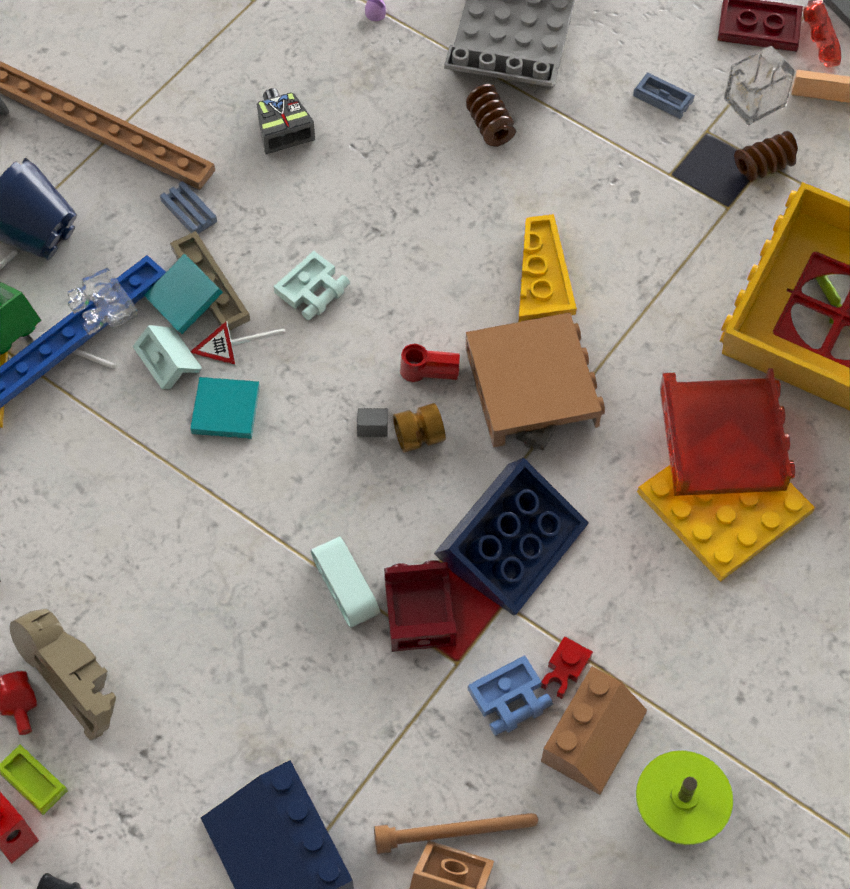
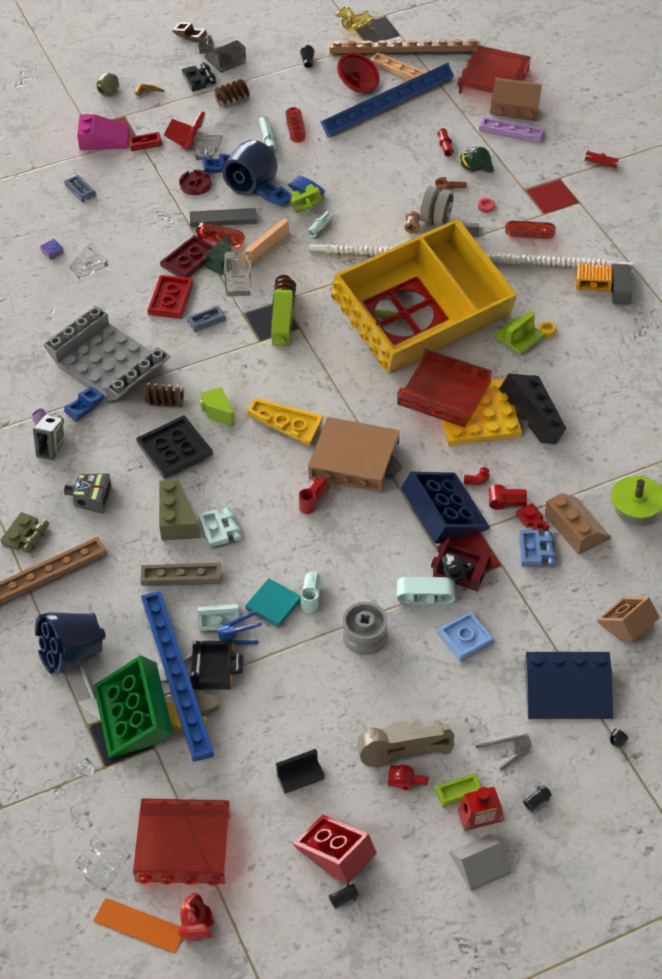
camera: 60 degrees left, 10 degrees down
(25, 408) = (206, 702): none -> dark tan tile
(87, 388) = (213, 665): none -> black piece
(108, 296) = (164, 622): clear plate -> none
(141, 380) = (228, 631): none -> blue plant
(144, 823) = (517, 742): none -> light grey plant
(176, 194) = (117, 562): sand blue tile -> none
(183, 90) = (20, 530): none -> olive plate
(183, 293) = (182, 588): teal tile -> none
(219, 343) = (228, 587): piece -> none
(231, 533) = (365, 628): none -> light grey wheel
(262, 441) = (311, 592): none -> light aqua piece
(299, 670) = (465, 636): none -> light blue tile
(302, 222) = (175, 512): none -> olive wedge
(340, 31) = (48, 436): none -> dark grey torso
(372, 422) = (330, 537): dark grey slope -> none
(389, 838) = (587, 635): medium nougat piece -> none
(399, 596) = (454, 566): none -> black piece
(414, 170) = (174, 446): none -> black plate
(419, 427) = (352, 515): pearl gold wheel -> none
(423, 44) = (85, 403): none -> blue slope
(514, 181) = (217, 406): none -> lime slope
(577, 605) = (501, 497): none -> red piece
(600, 561) = (478, 479): none -> red arm
(673, 38) = (170, 296): none -> red tile
(716, 175) = (282, 317): none -> lime slope
(780, 565) = (534, 406): none -> black wedge
(792, 47) = (215, 257): none -> clear green arch

